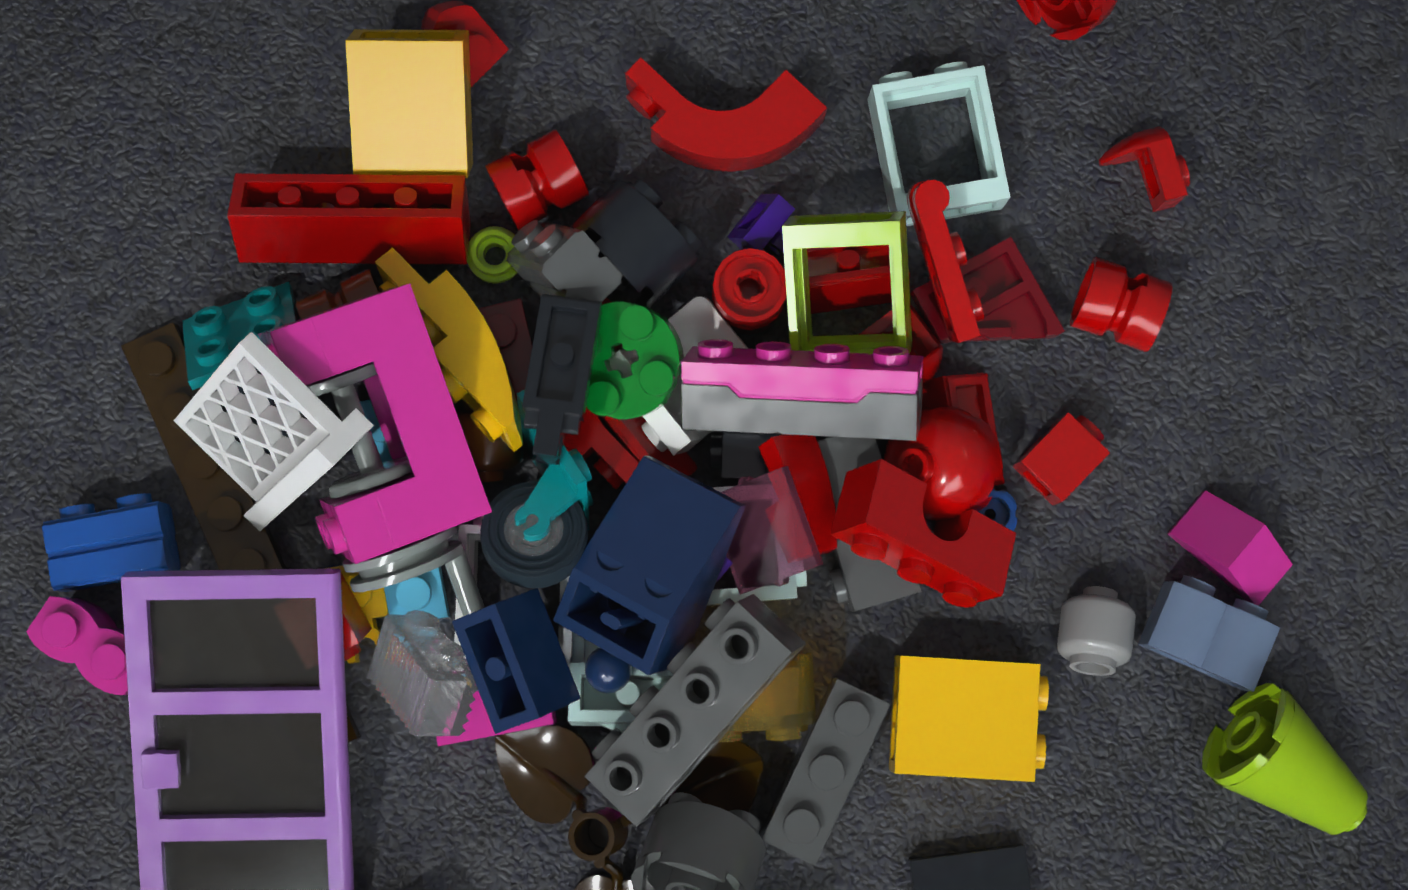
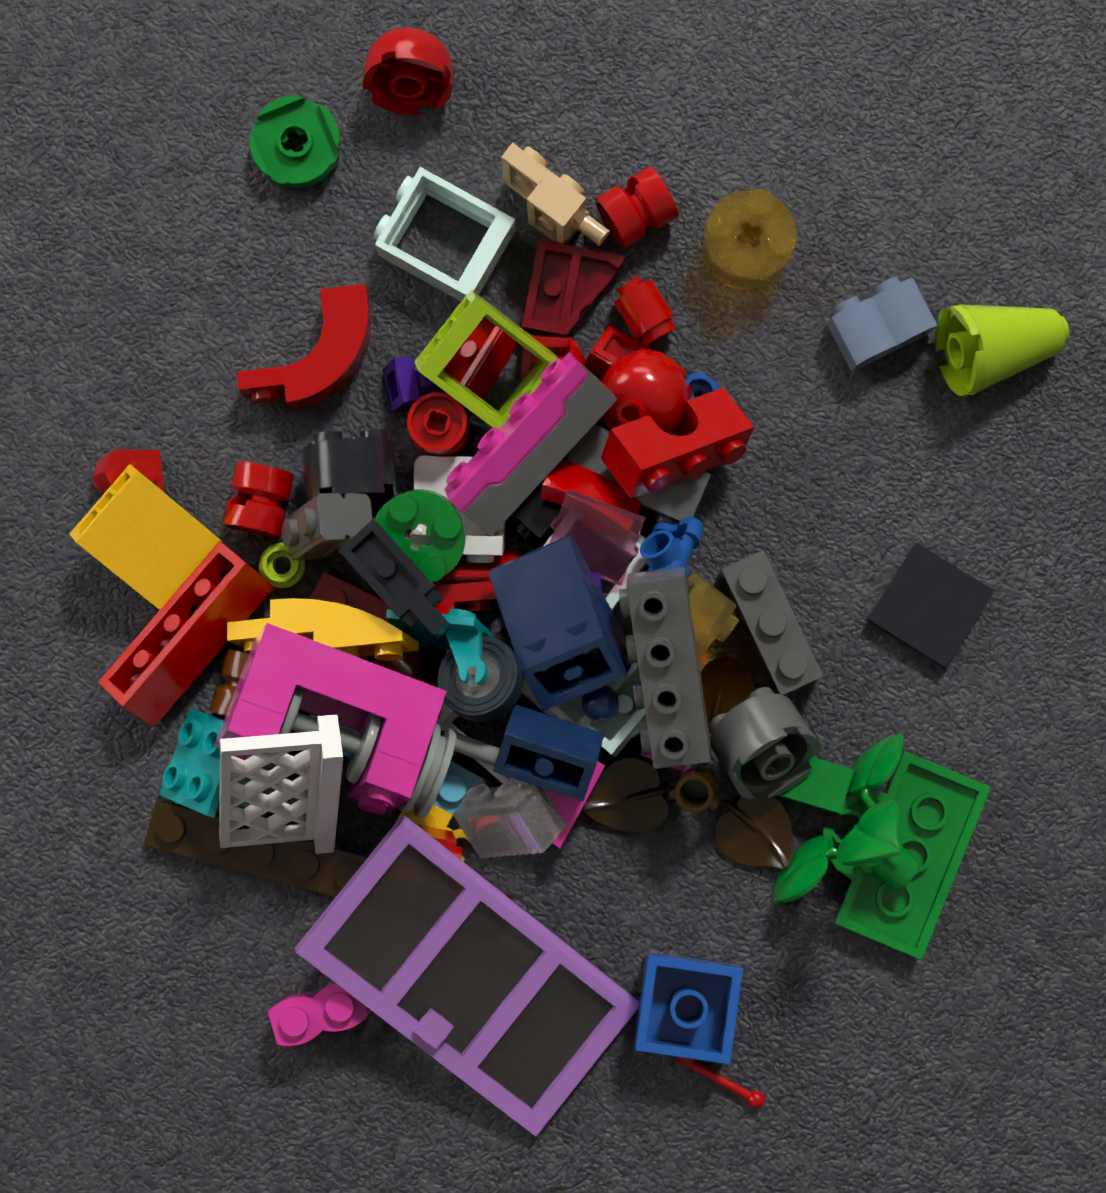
camera: 40 degrees left, 0 degrees up
(100, 547) = (264, 951): blue brick -> none
(819, 611) = (672, 544): none -> blue plate
(943, 258) = (519, 291): red plate -> none
(967, 718) = (810, 511): yellow brick -> none
(1028, 395) = (645, 310): none -> red brick
(1056, 219) = (553, 202): none -> tan plate
(1062, 457) = (700, 321): red brick -> none
(1096, 631) = (823, 390): light grey head -> none
(1162, 170) = (574, 113): red plate -> none
(1210, 425) = (757, 216): none -> clear yellow brick
(1232, 546) = (840, 265): dark pink slope -> none

